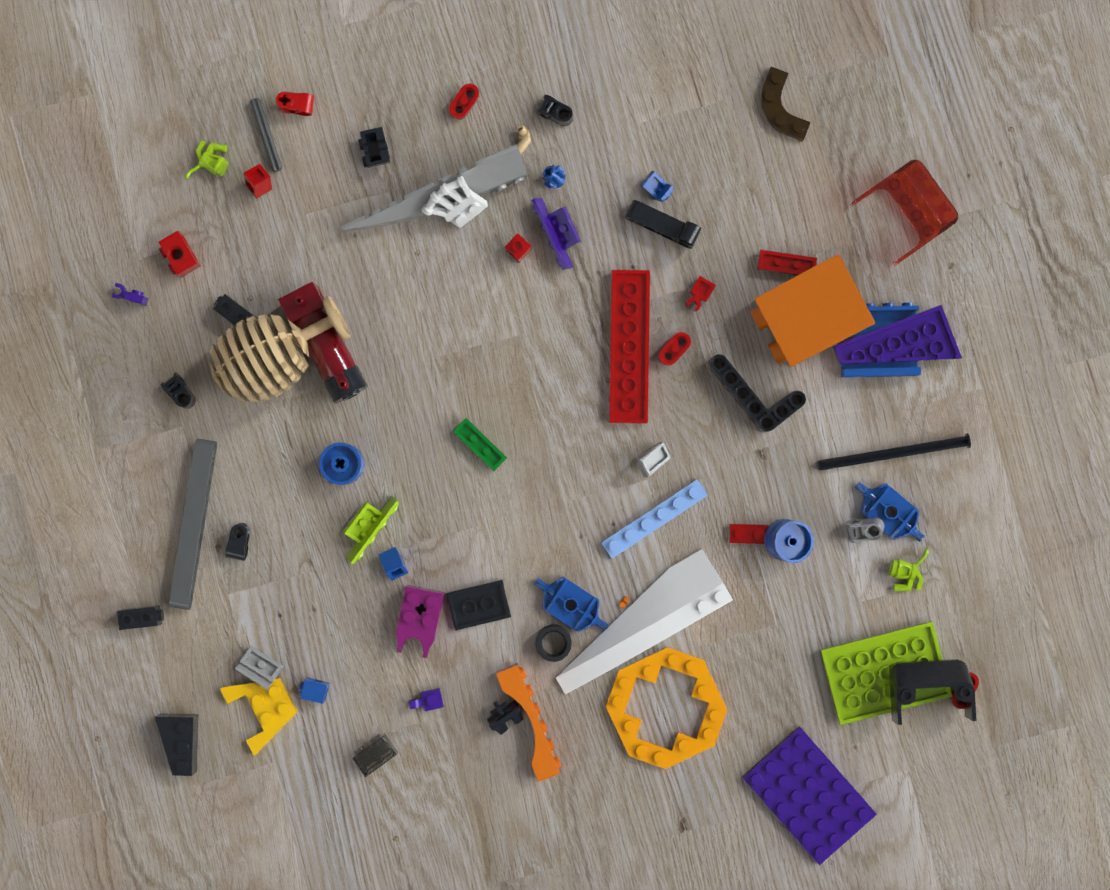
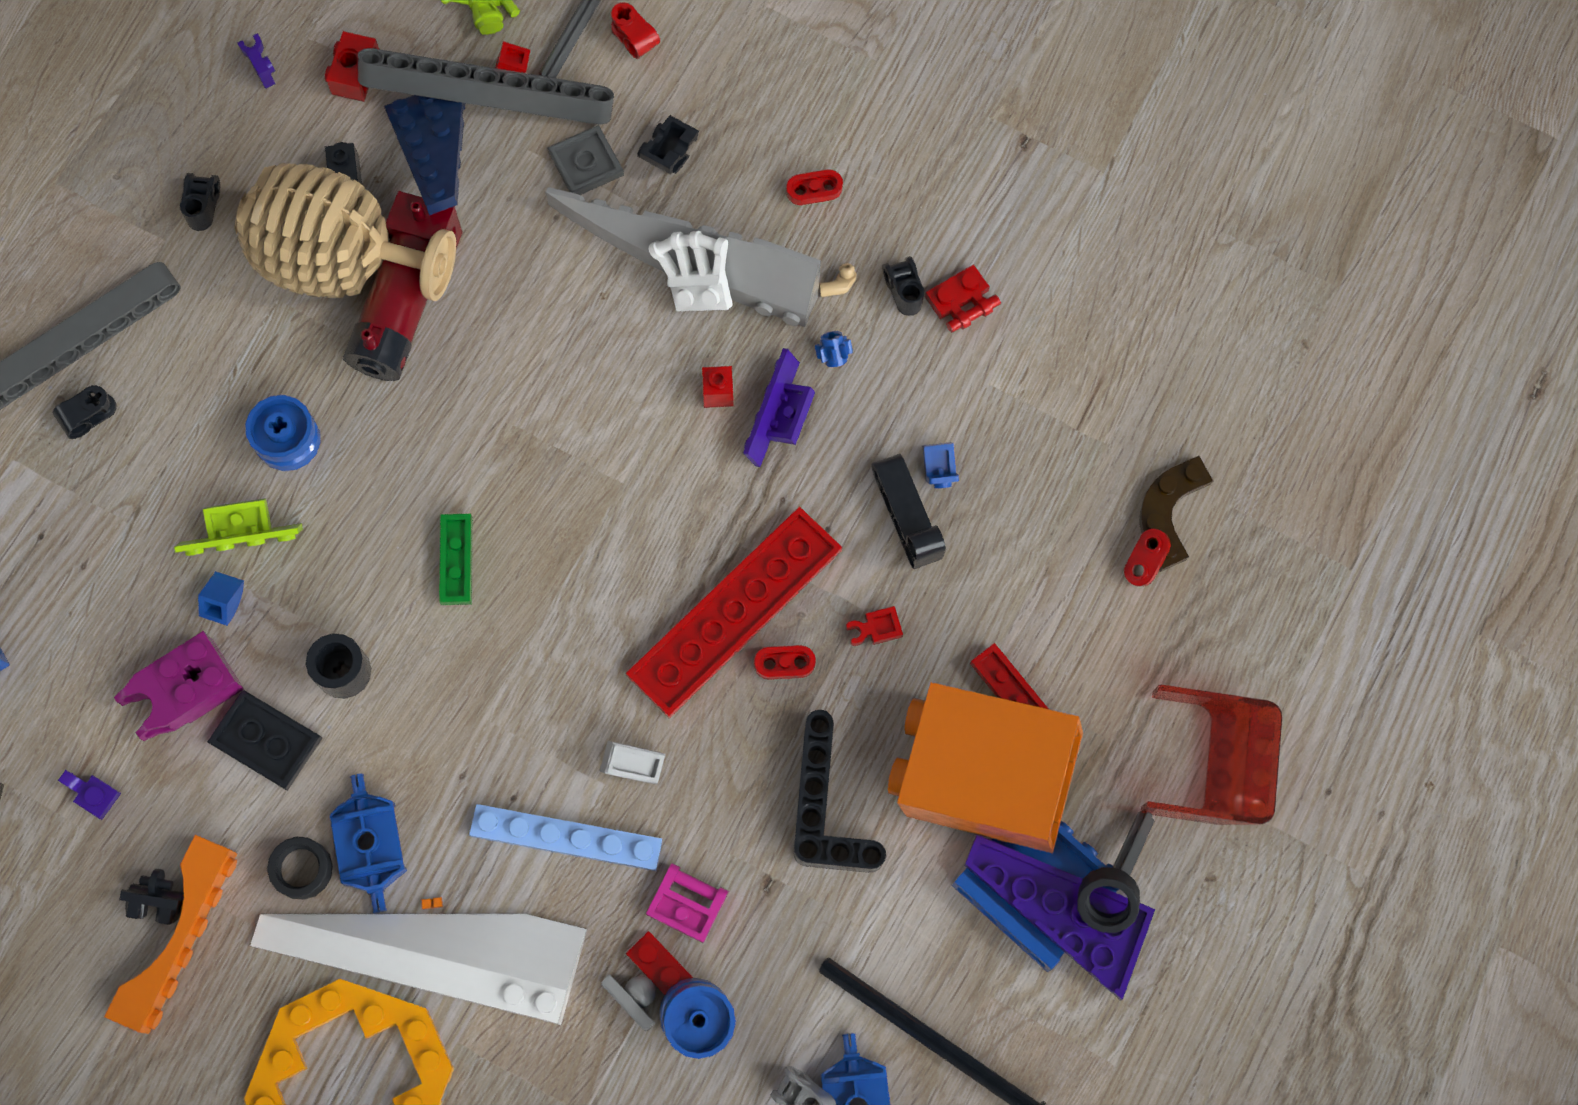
camera: 40 degrees right, 15 degrees down
(256, 253) = (431, 142): none -> dark blue wing
(257, 204) = (485, 86): none -> dark grey beam
(340, 193) = (586, 161): none -> dark grey tile
(481, 553) = (326, 658): none -> black piece
(582, 91) = (957, 292): none -> red plate
(737, 502) = (682, 912): none -> dark pink plate
(752, 555) = (637, 994): none -> light grey tile
(792, 142) = (1148, 558): none -> red plate
(907, 288) = (1134, 842): none -> dark grey axle
(927, 330) = (1103, 921): none -> black tyre

